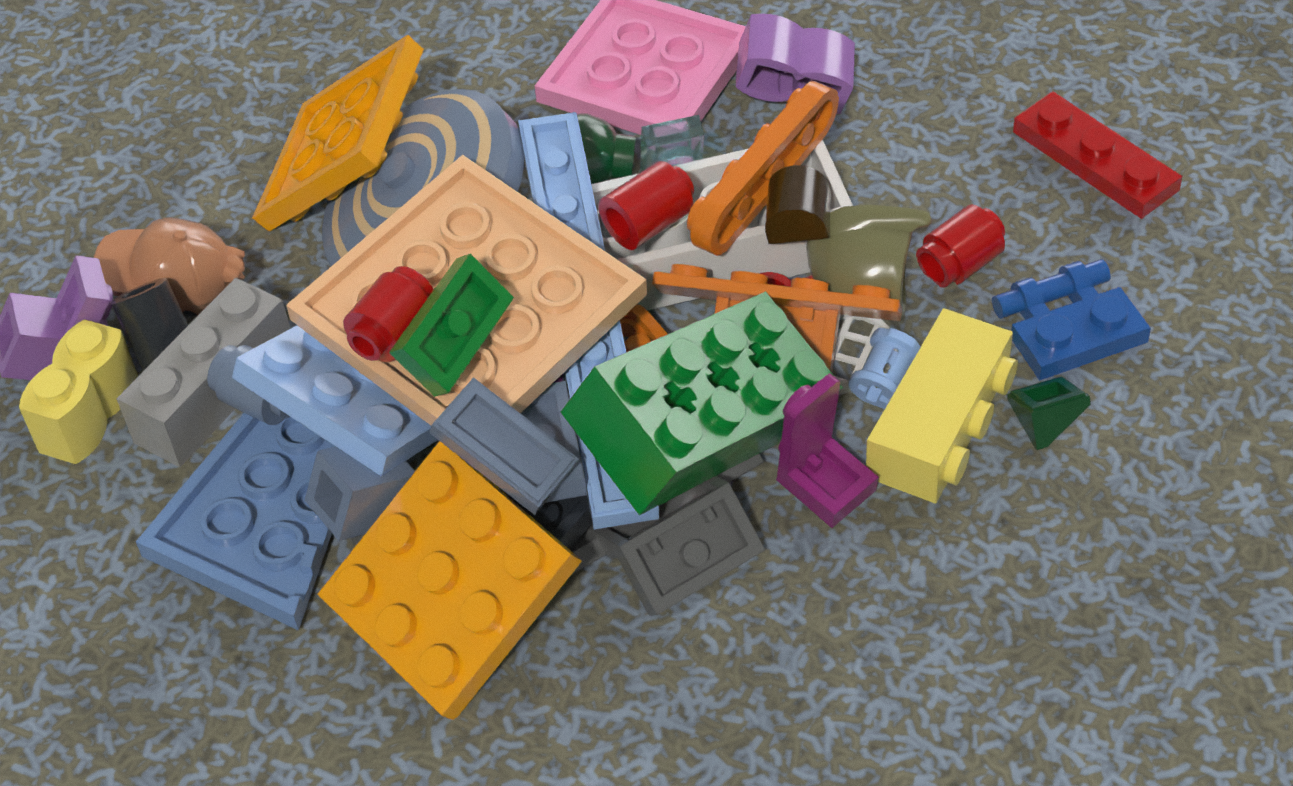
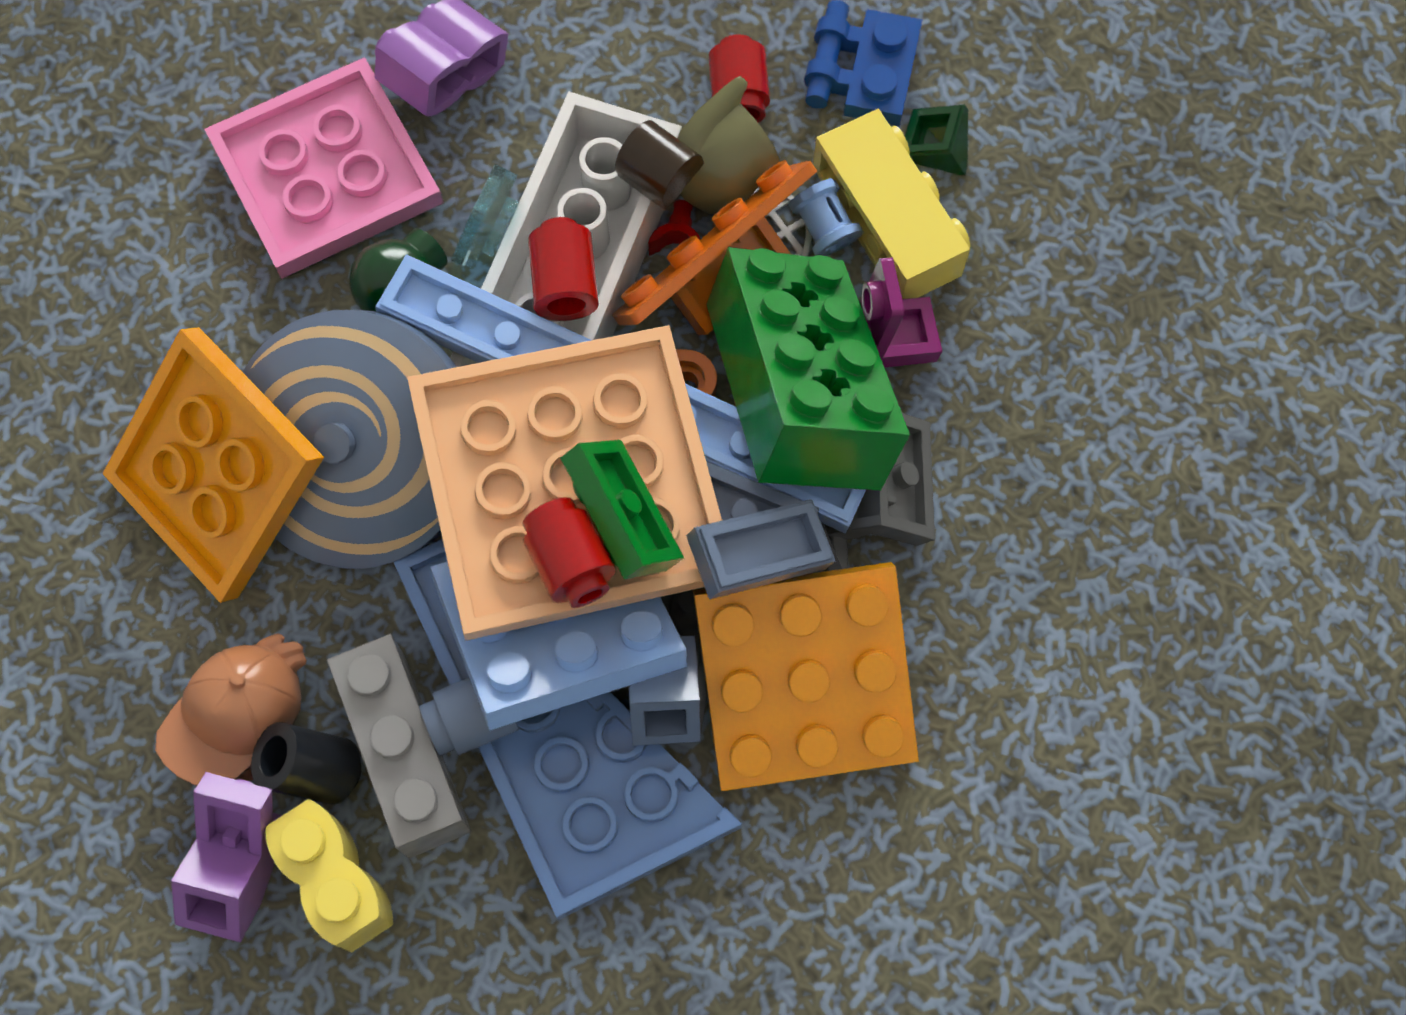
camera: 60 degrees left, 20 degrees up
(743, 190) = (602, 174): orange plate -> none

